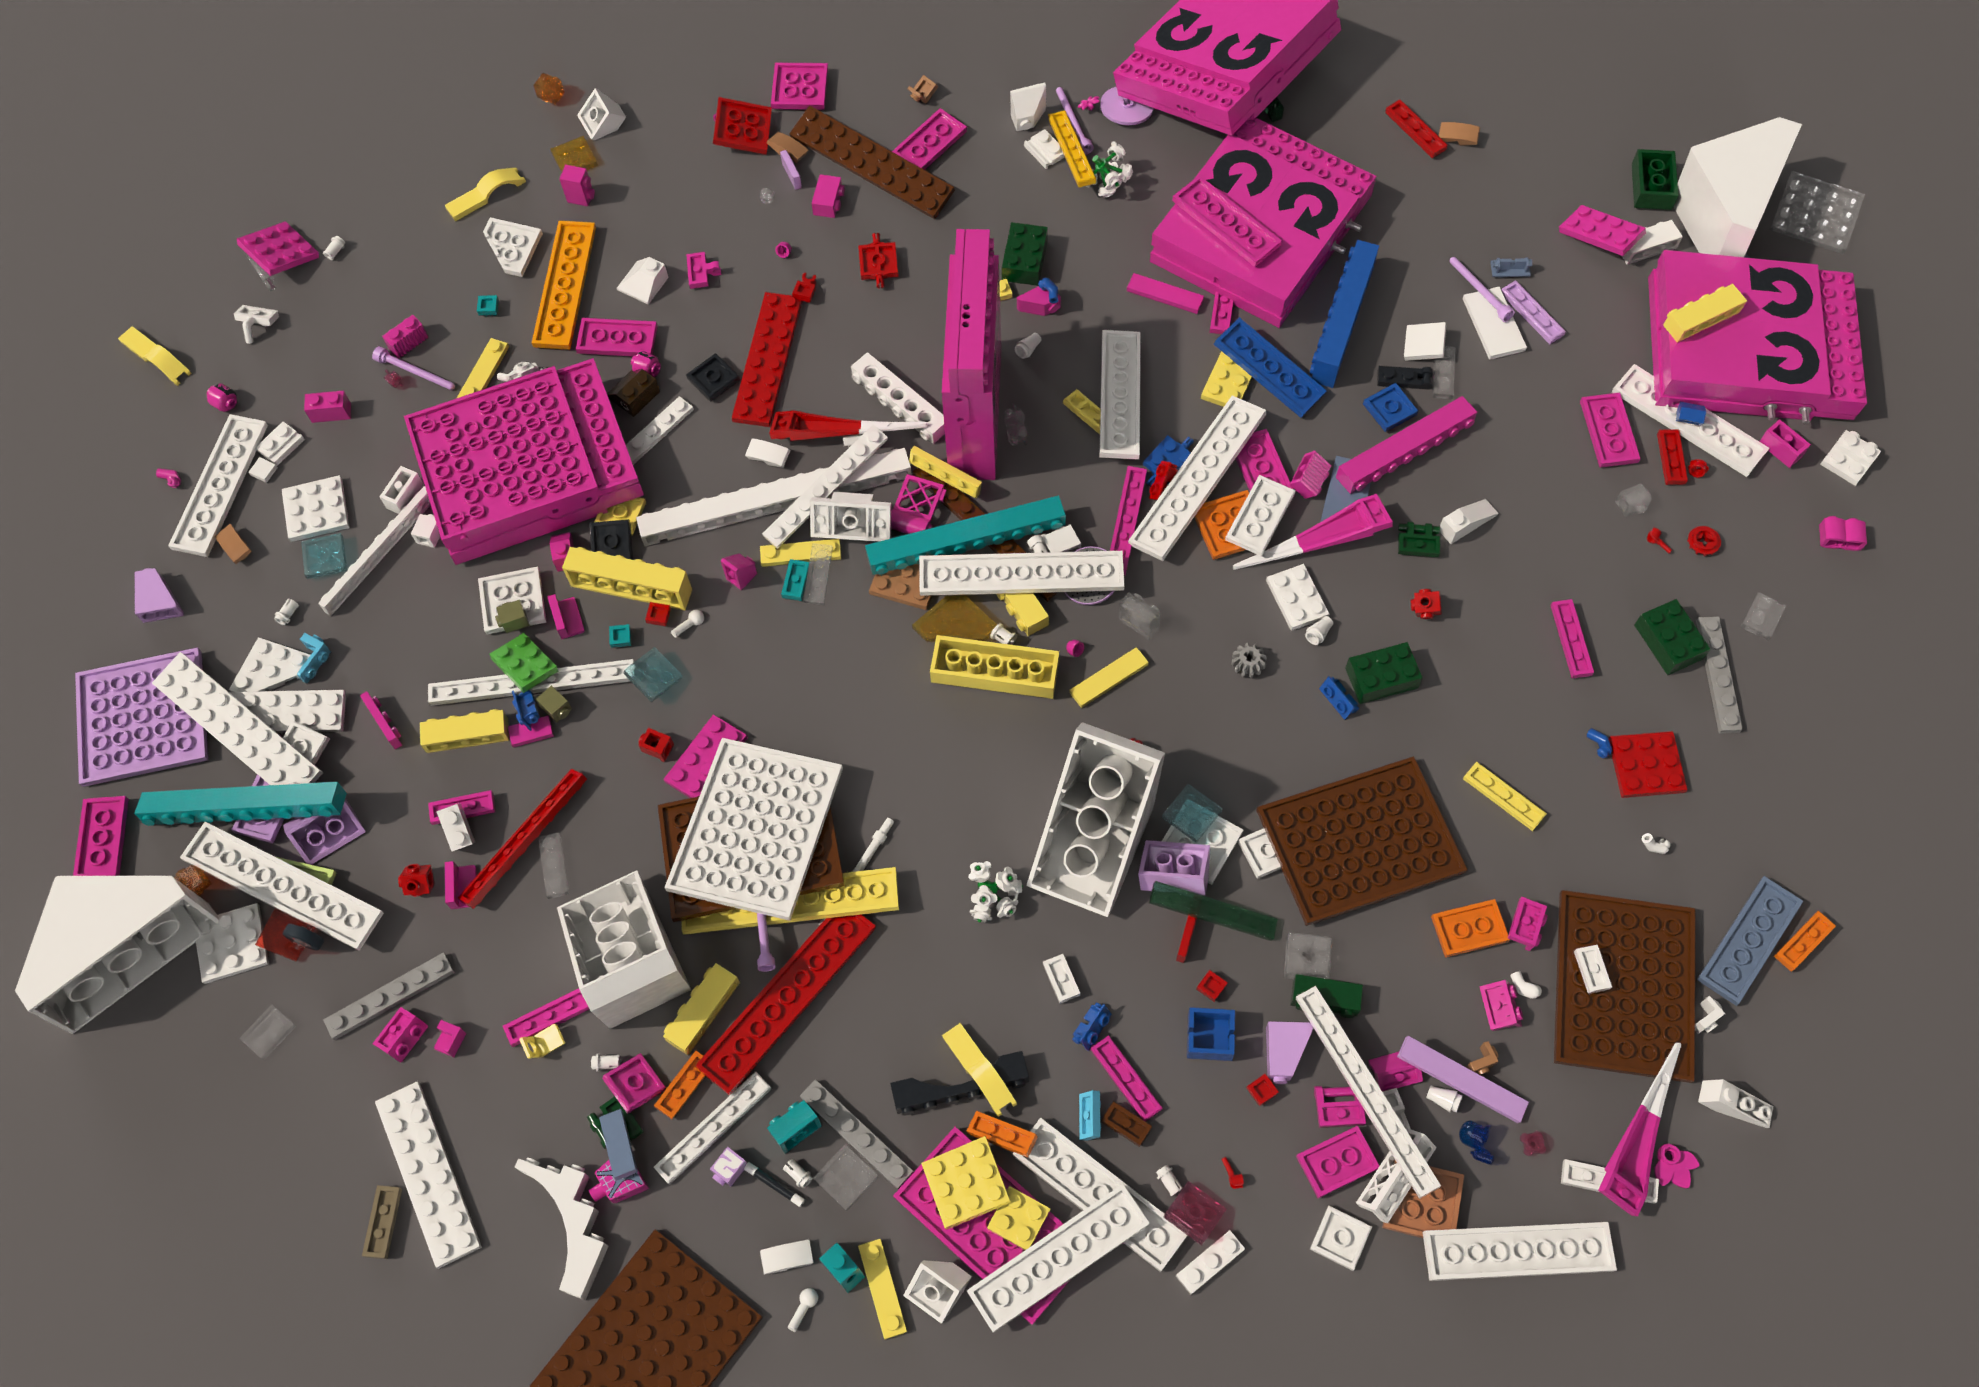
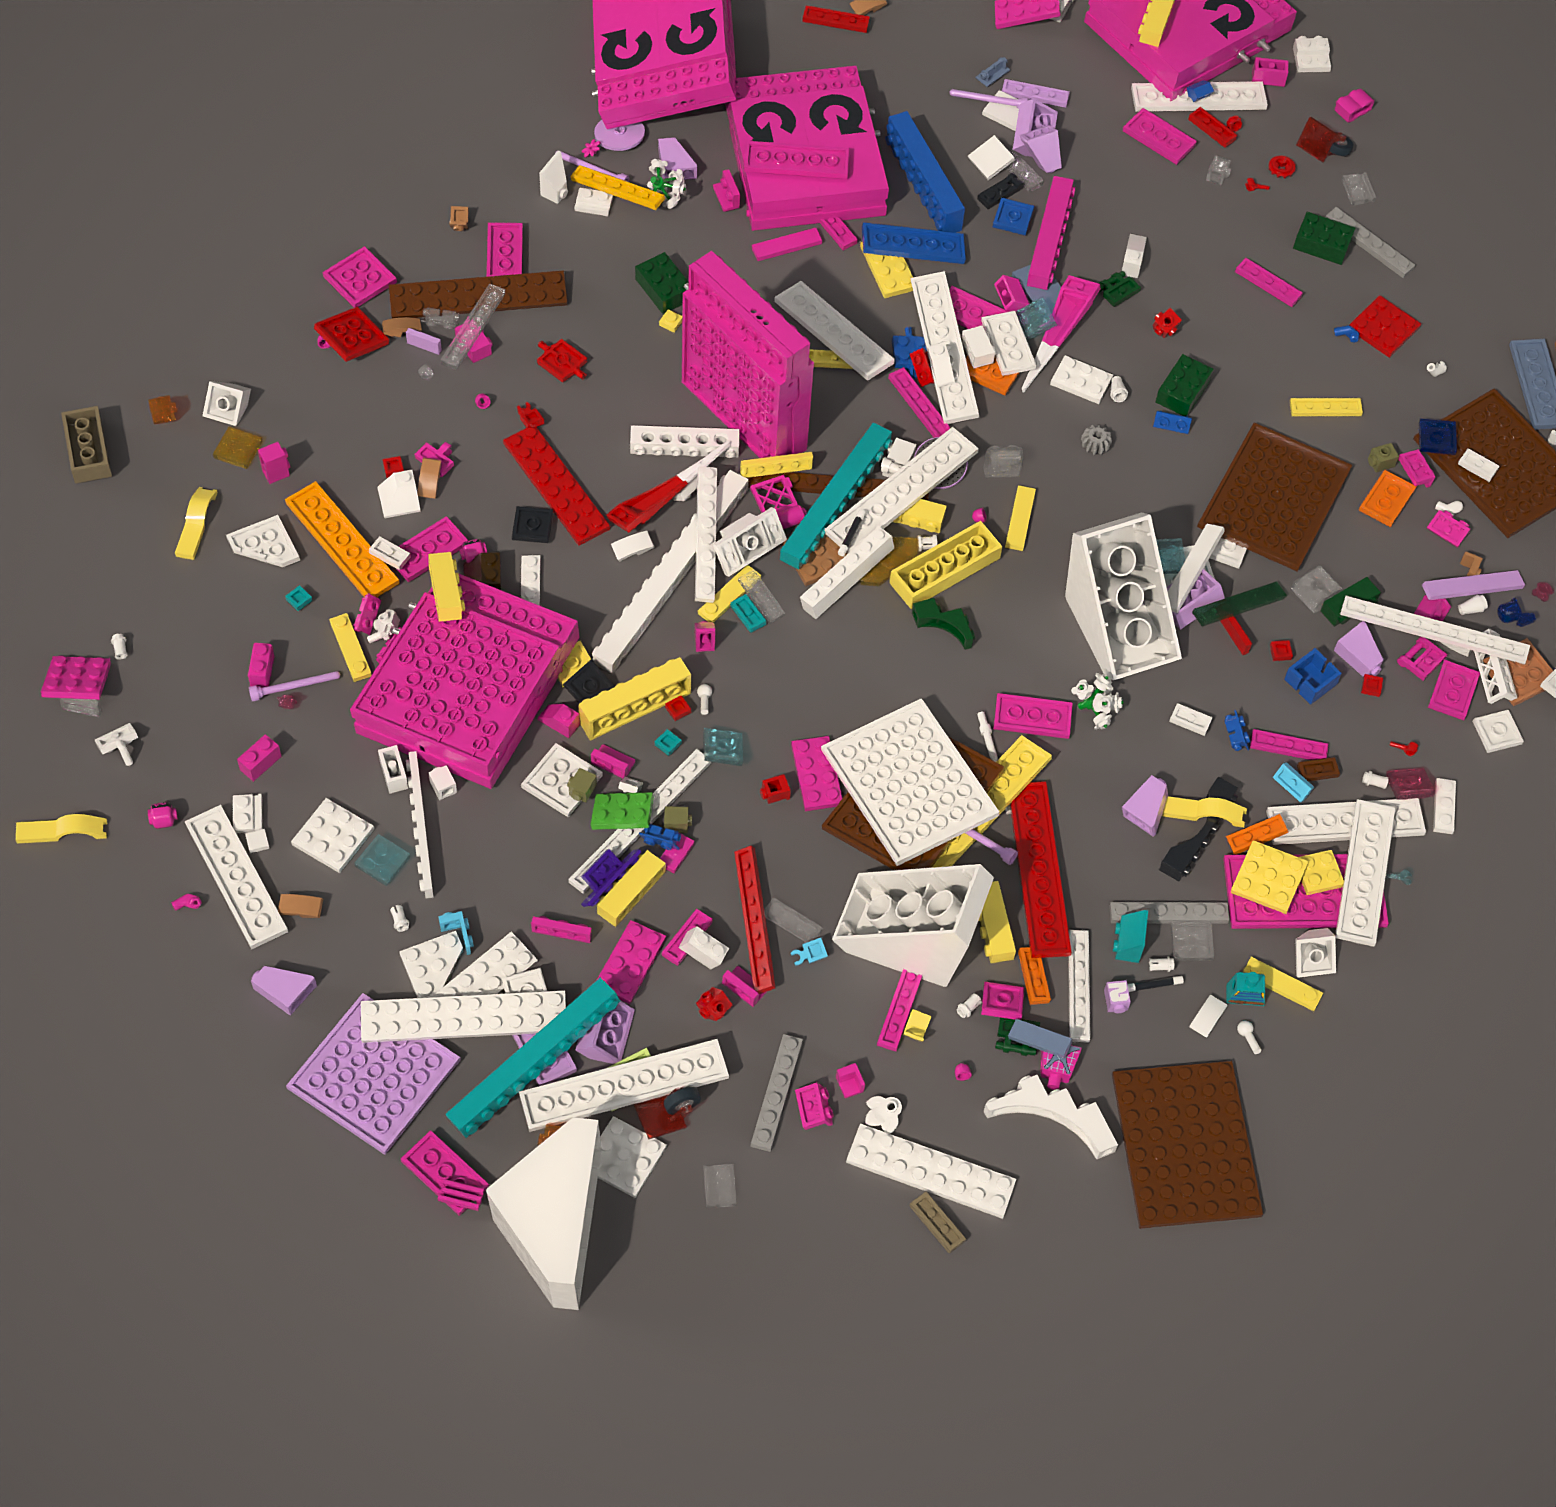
camera: 50 degrees left, 5 degrees down
(79, 852) = (446, 1183): none -> dark pink tile
(403, 790) = (631, 960): none -> dark pink plate
(442, 1089) = (881, 1115): none -> white plate
(453, 699) = (604, 872): none -> dark purple bracket
(470, 77) = (86, 444): none -> dark tan brick
(518, 353) = (369, 610): none -> dark pink hinge
(536, 904) = (812, 951): none -> medium azure plate
(539, 1114) = (962, 1072): none -> dark pink hinge
(554, 647) = (630, 785): none -> white plate
(567, 372) = (445, 587): none -> light yellow brick
(579, 318) = (389, 553): none -> white plate
(663, 253) = (392, 465): none -> red plate
(675, 278) = (429, 478): none -> medium nougat slope
(825, 164) = (447, 319): none -> clear hinge
(830, 182) = (472, 327): none -> clear plate
(903, 608) = (847, 572): none -> white brick
(929, 859) = (1033, 715): none -> dark pink plate
(935, 576) = (855, 525): none -> black bar
(936, 1022) = (1147, 805): none -> lavender slope
(939, 699) = (929, 614): none -> dark green arch
(1095, 1291) = (1401, 876): none -> clear light blue hand
(1144, 157) = (677, 158): none -> lavender slope
(1158, 212) = (727, 192): none -> dark pink bracket
(1172, 488) = (941, 364): none -> white slope
(1199, 843) = (1194, 565): none -> white tile
(1226, 498) = (978, 346): none -> white brick
(1307, 511) = (1035, 318): none -> clear light blue plate
(1475, 363) = (1043, 147): none -> lavender slope
(1490, 343) = (1032, 116): none -> lavender slope
(1506, 886) = (1383, 457): none -> olive brick
(1580, 909) = (1437, 436): none -> clear blue plate
(1768, 548) = (1322, 141): none -> clear red plate

